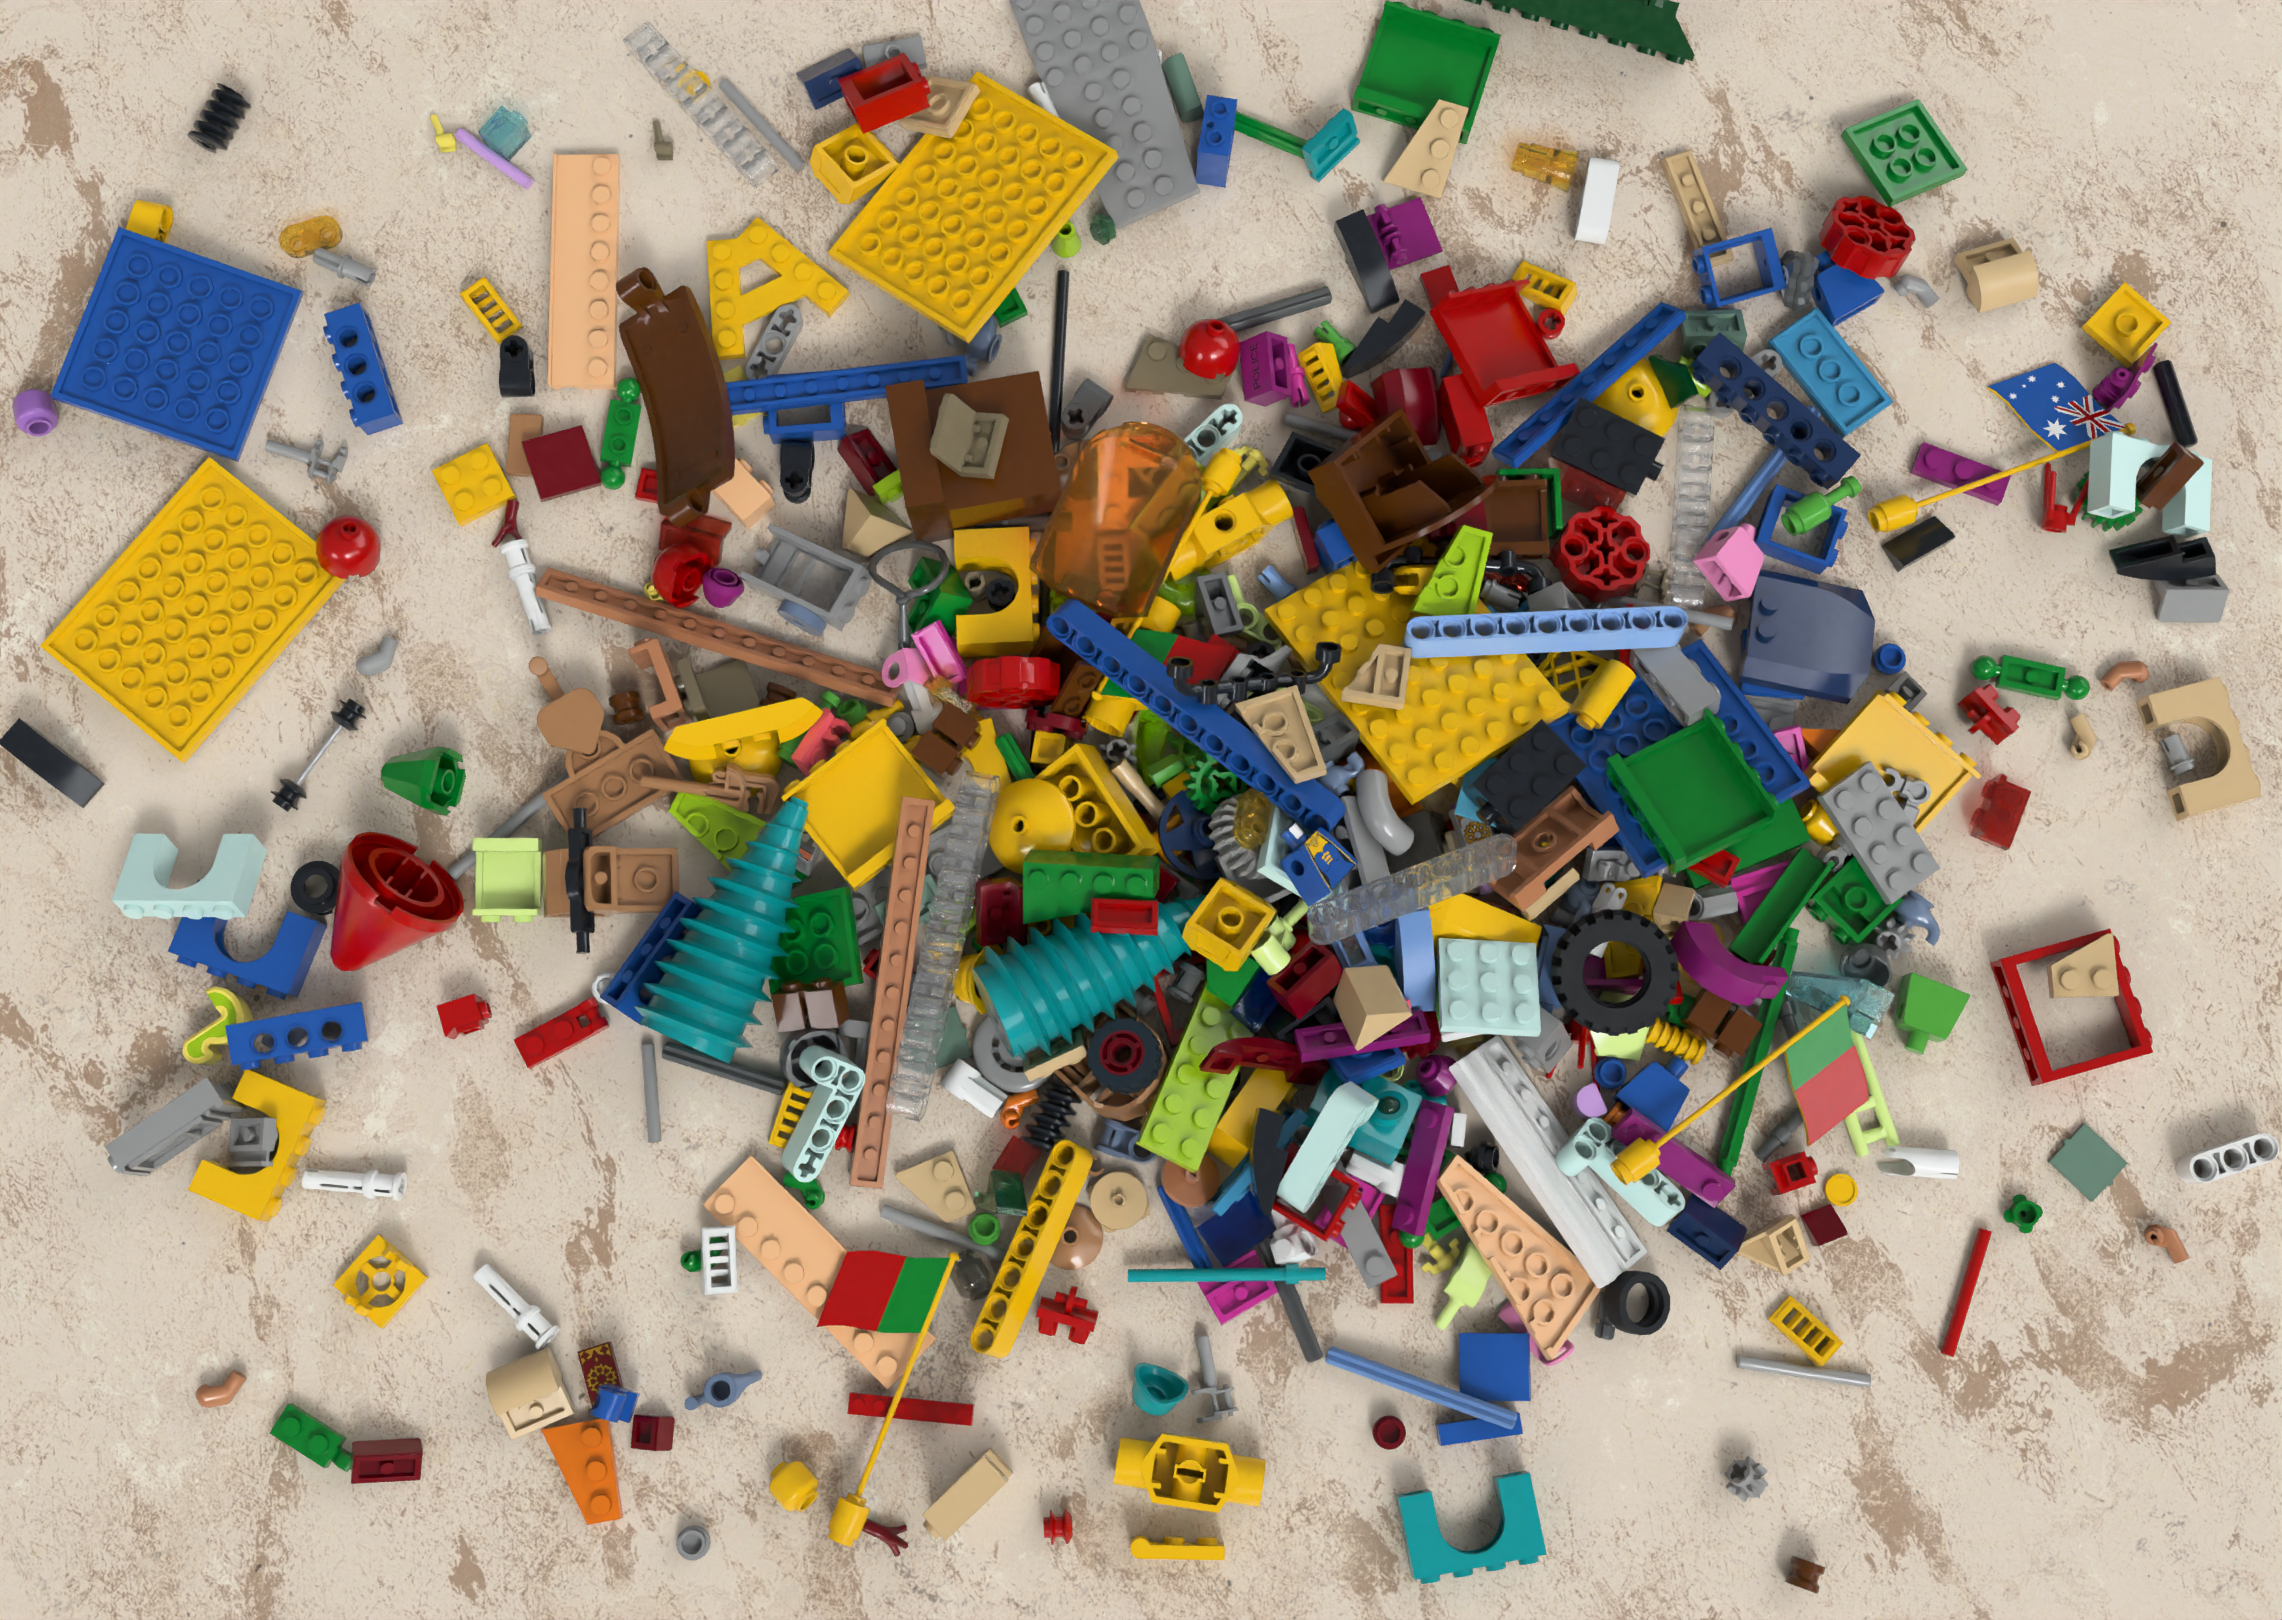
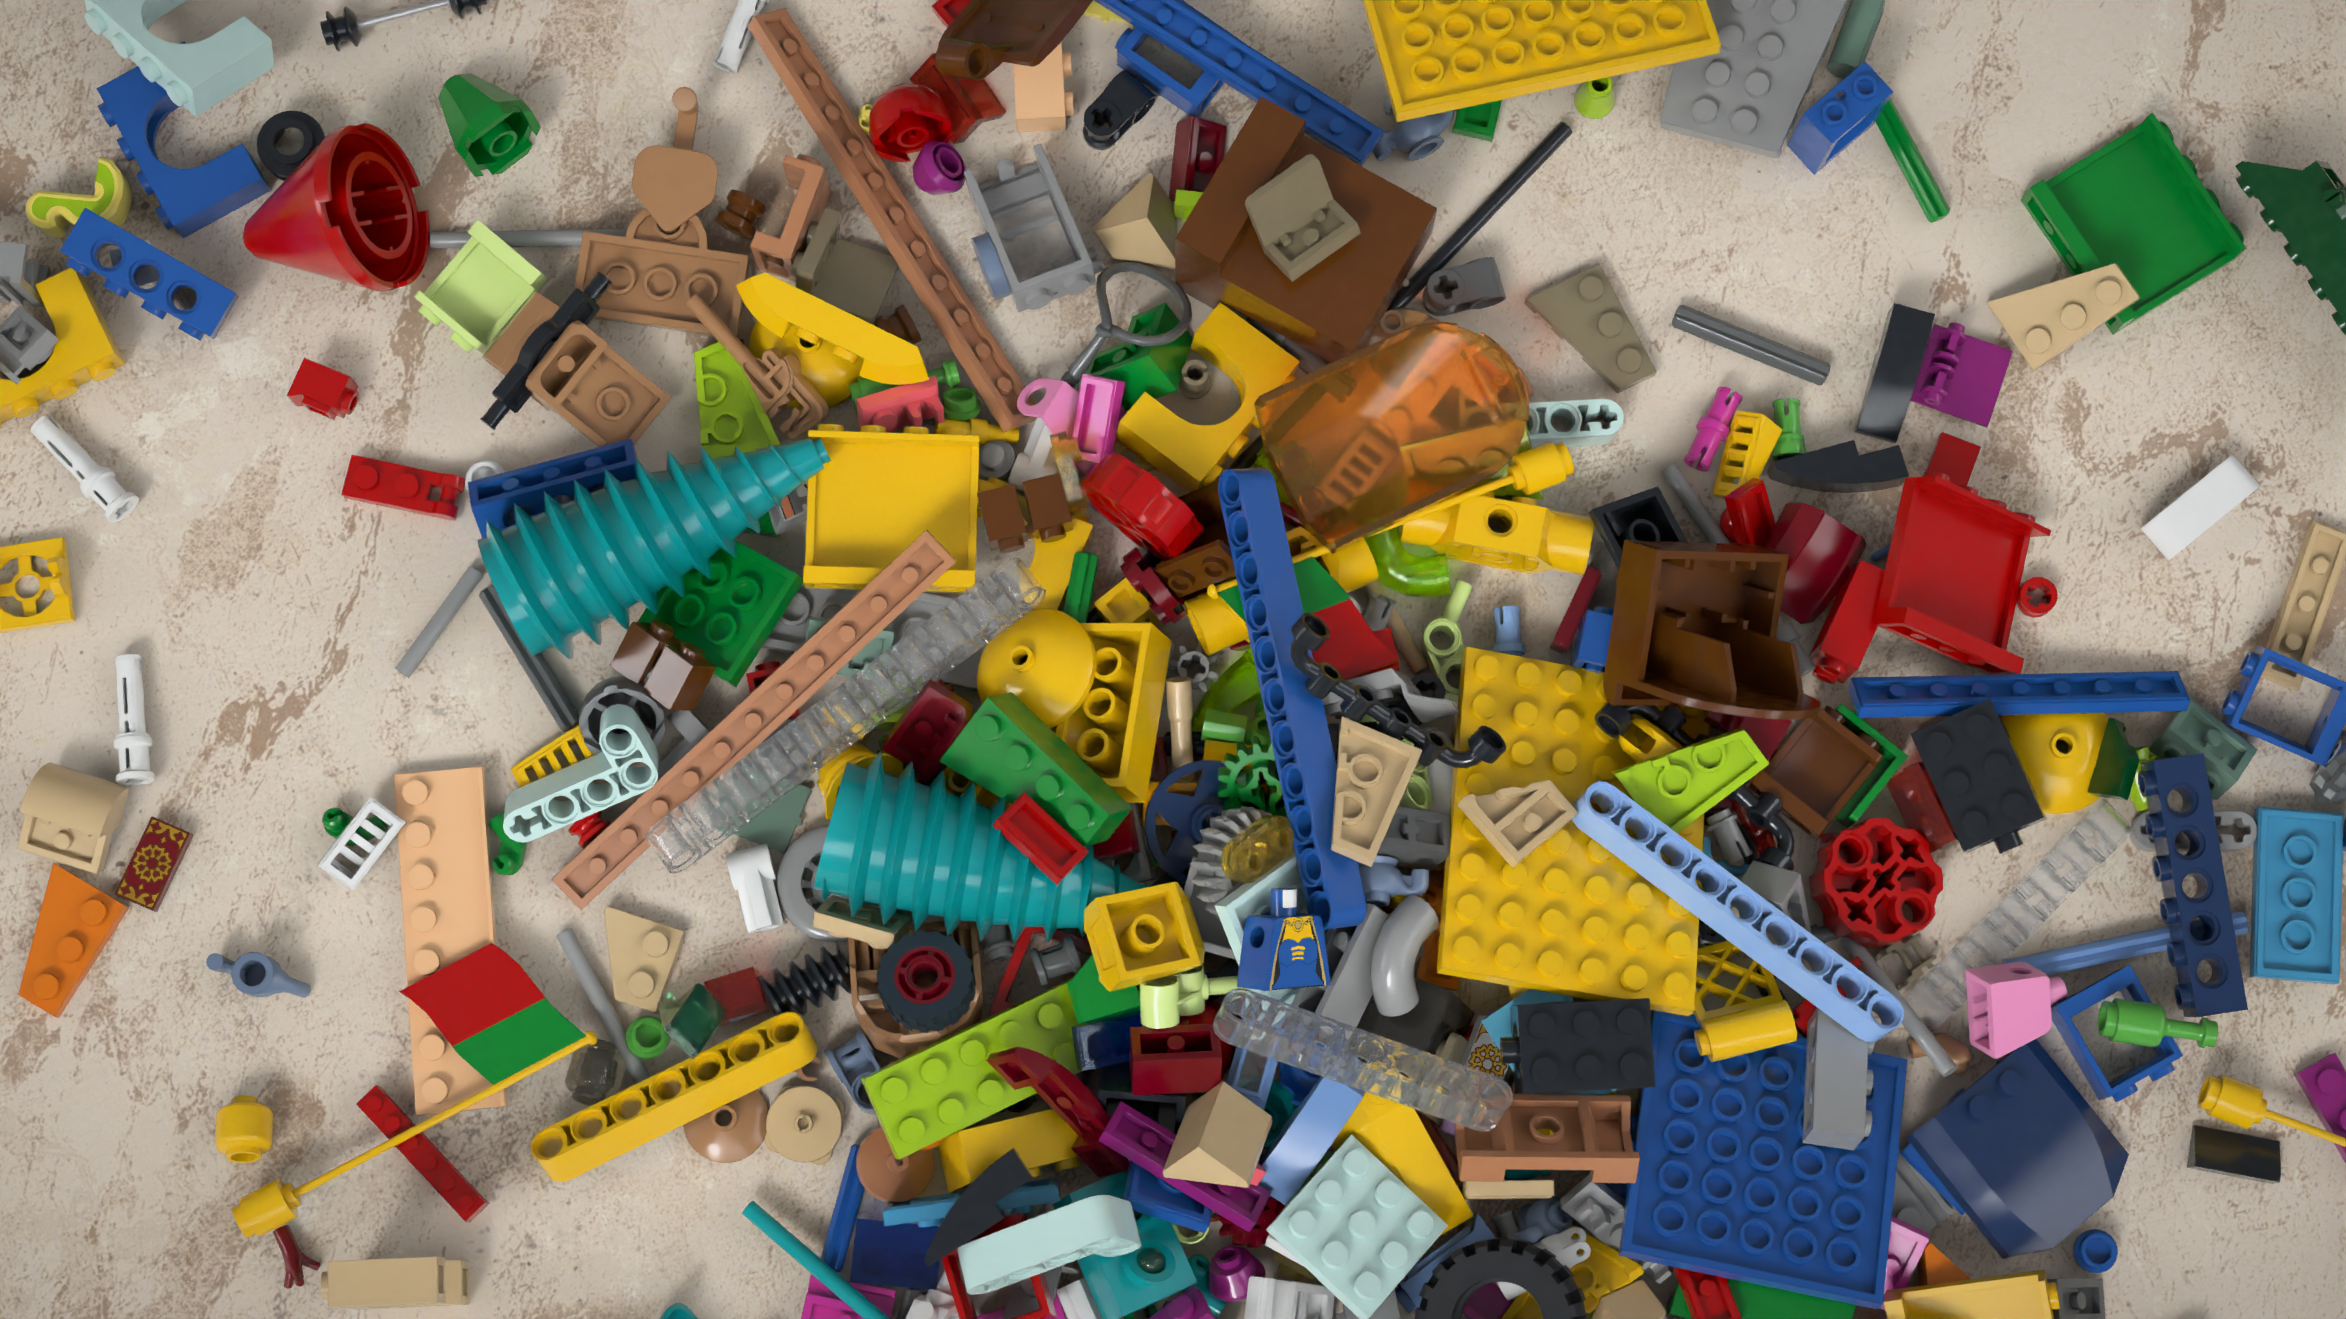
camera: 40 degrees right, 0 degrees up
(614, 1403) = (141, 897): blue leg -> none
(652, 1432) = (156, 959): dark red slope -> none
(693, 1542) = (103, 1101): light grey plate -> none
(1007, 589) = (1204, 400): black bush -> none
(1014, 1107) = (782, 940): orange arm -> none
(1068, 1311) = (658, 1192): red hips -> none
(1103, 229) = (1644, 115): clear green plate -> none
(1209, 348) = (1646, 330): red cylinder -> none
(1217, 605) = (1422, 602): dark grey slope -> none
(1254, 458) = (1598, 482): light yellow piece -> none
(1265, 369) = (1688, 398): magenta brick -> none
(1330, 144) = (1961, 219): teal plate -> none
(1546, 164) = (2178, 426): clear yellow plant -> none
(1558, 283) = (2063, 576): yellow slope -> none
(1693, 793) = (1747, 1210): green panel -> none

